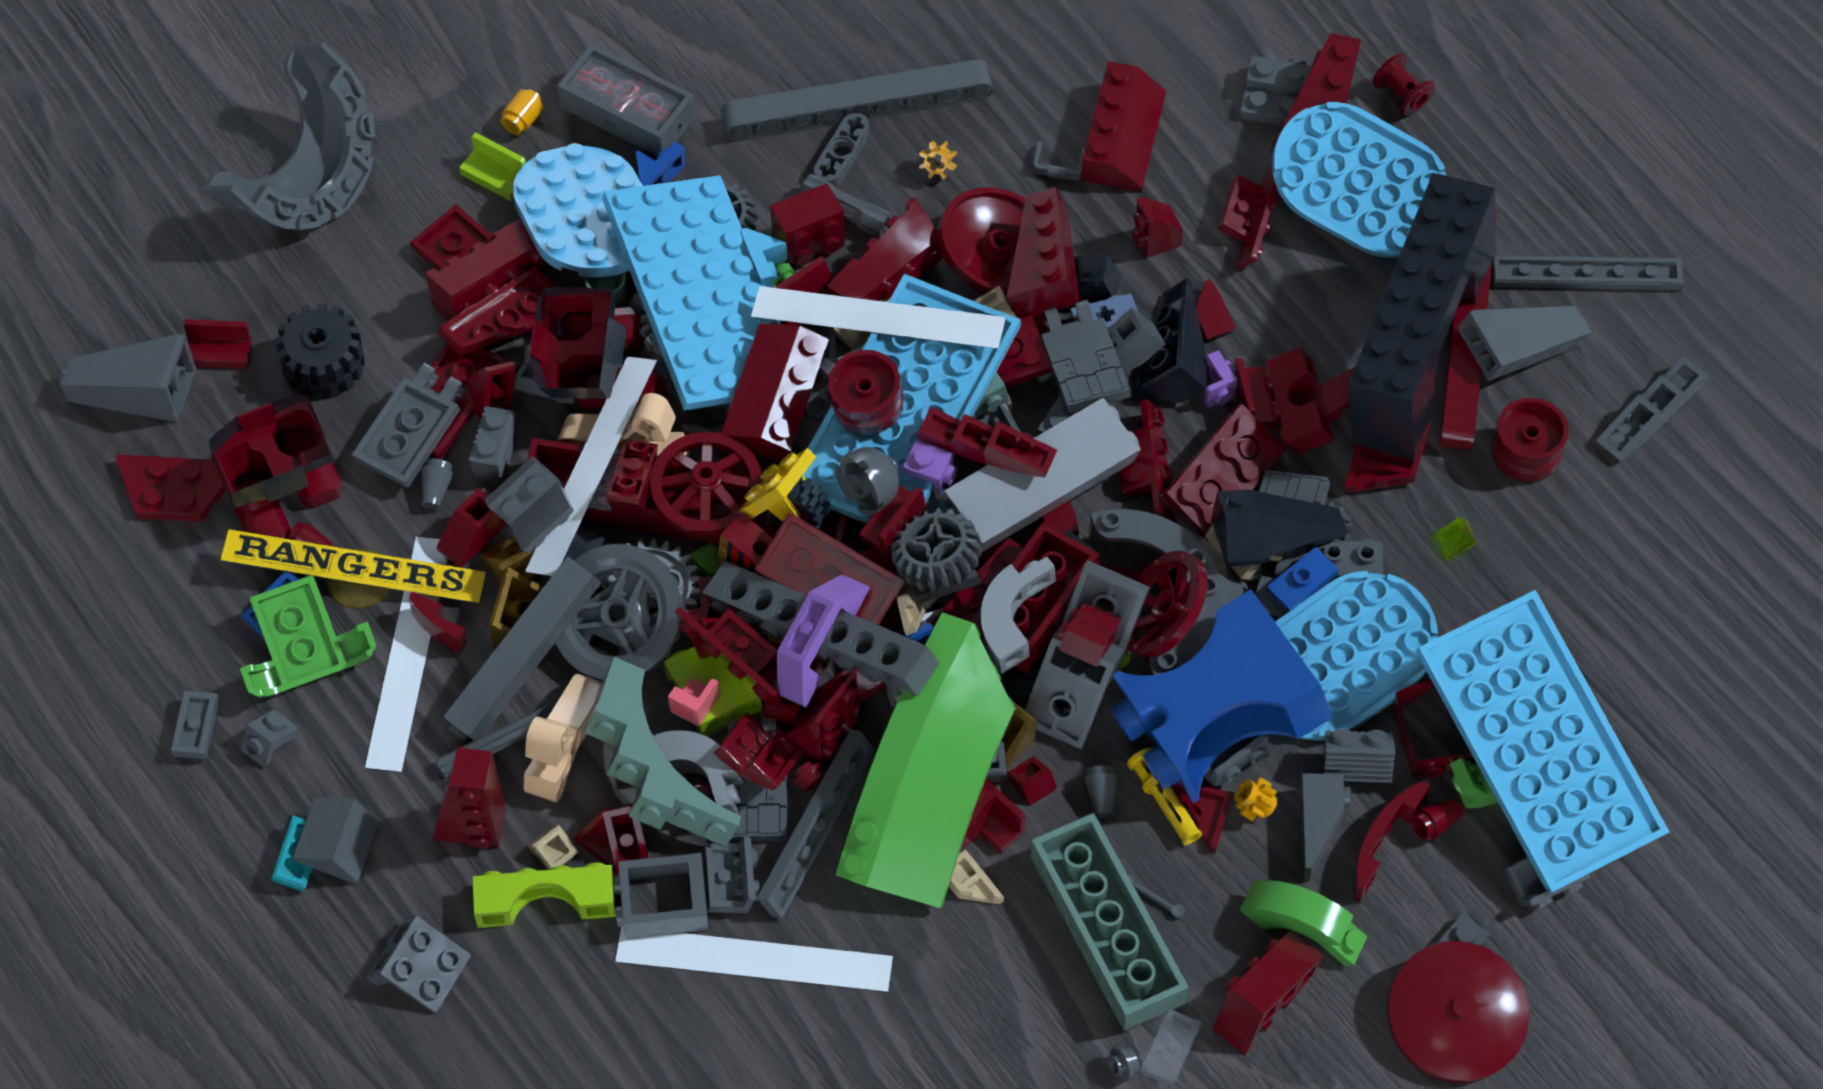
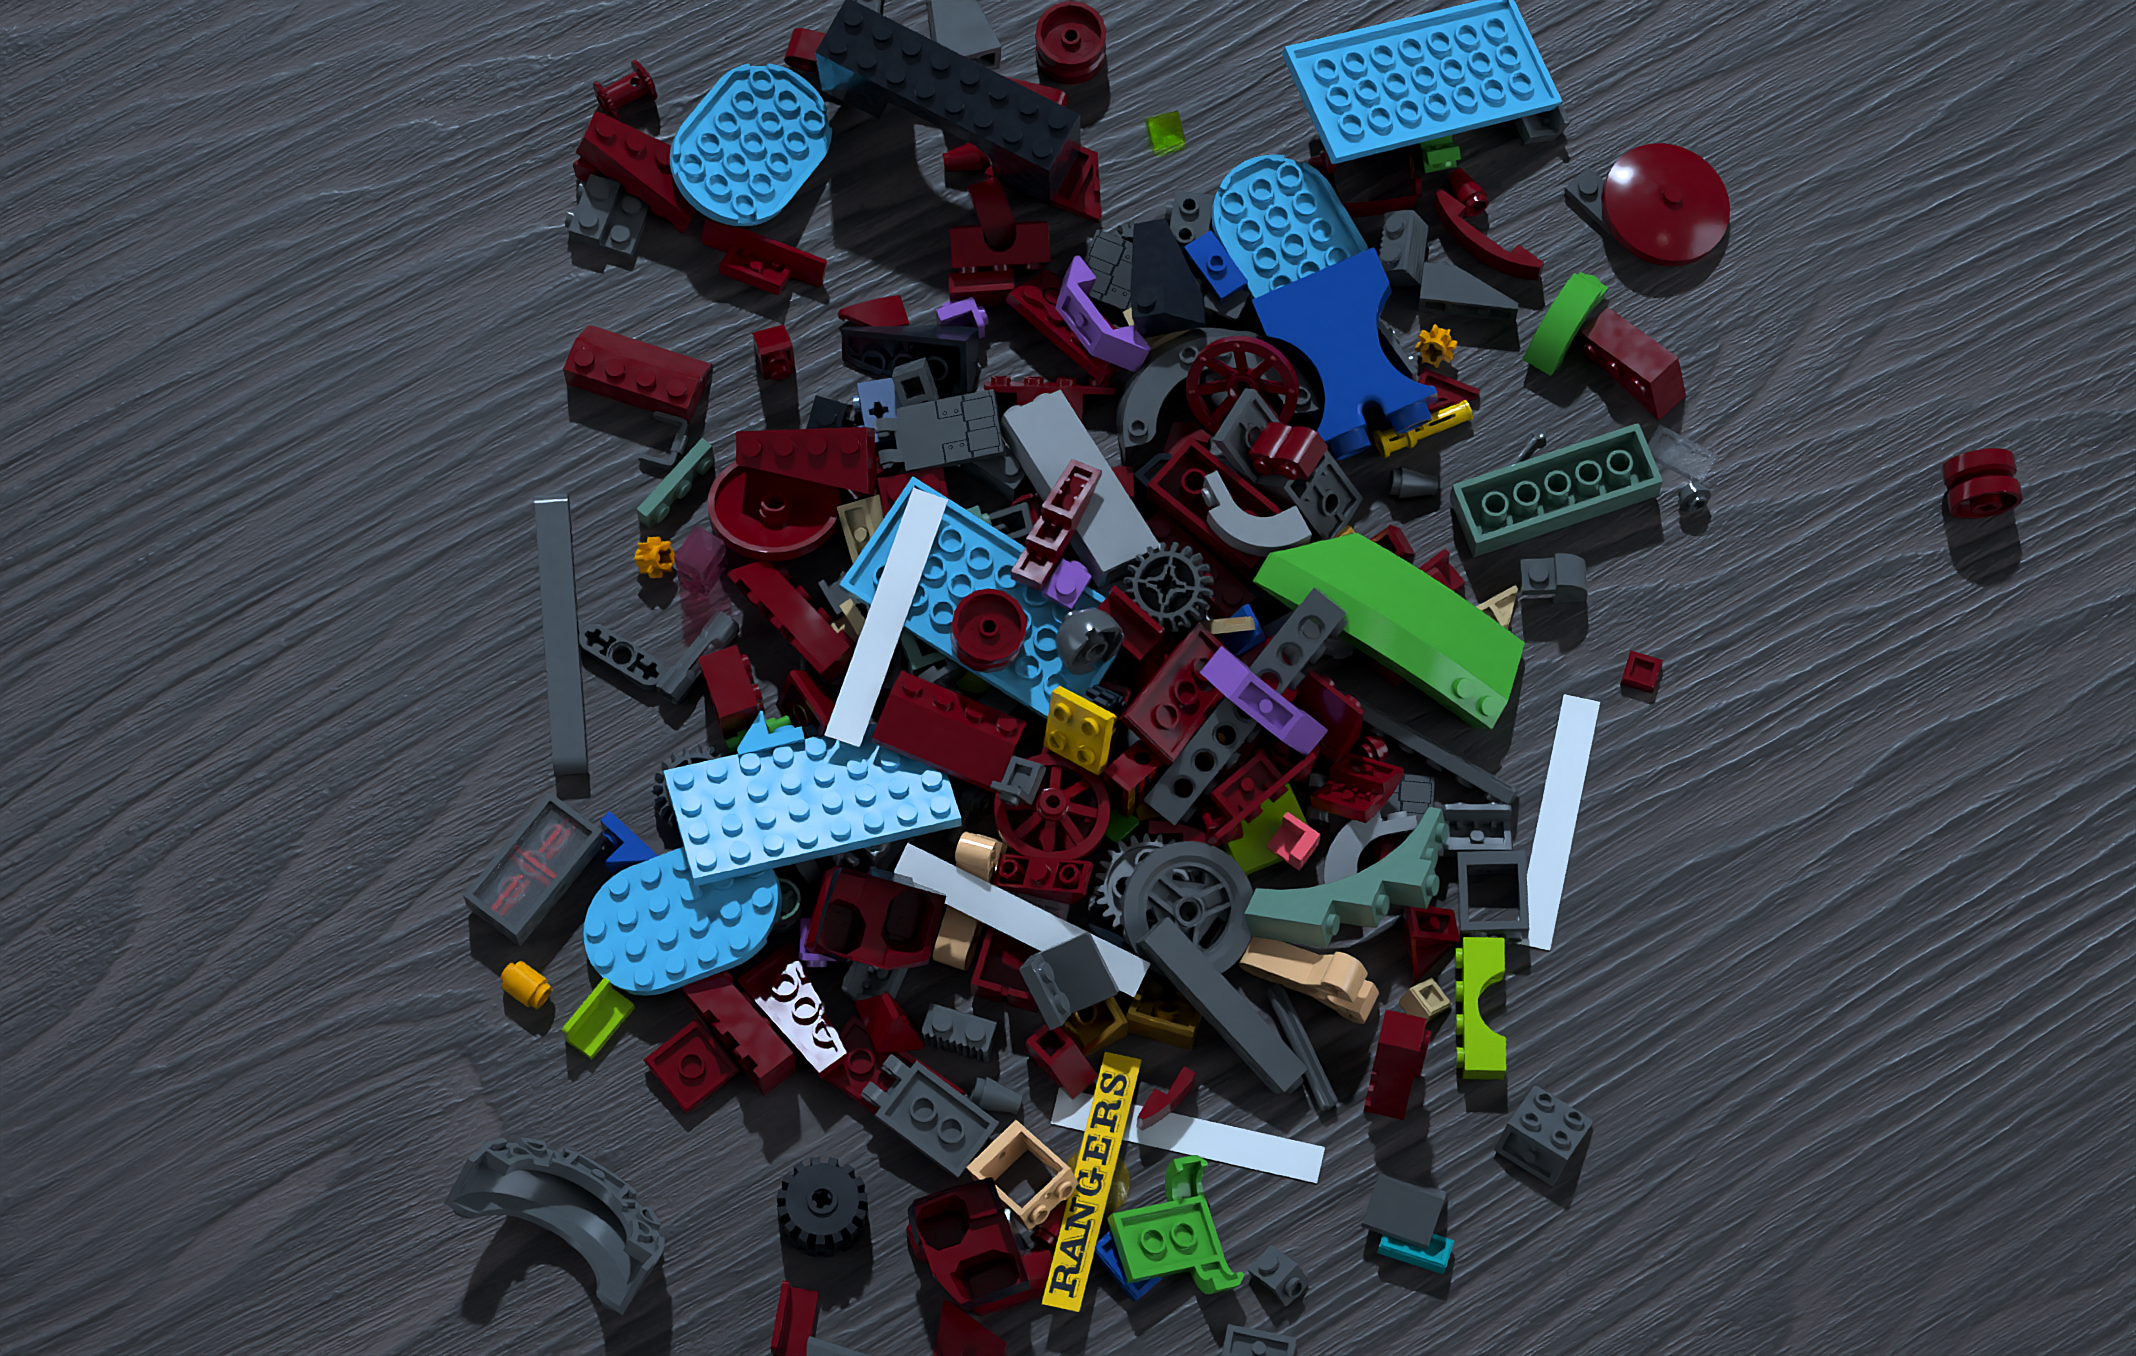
camera: 85 degrees left, 10 degrees up
(362, 480) = (1004, 1153): none -> light nougat window
(721, 443) = (1020, 782): none -> dark grey bracket
(923, 1027) = (1641, 672): none -> dark red tile
(933, 185) = (700, 561): none -> clear pink piece
(1010, 928) = (1560, 576): none -> dark grey brick
(1011, 167) = (676, 483): none -> sand green plate
(1197, 495) = (1119, 346): none -> medium lavender slope

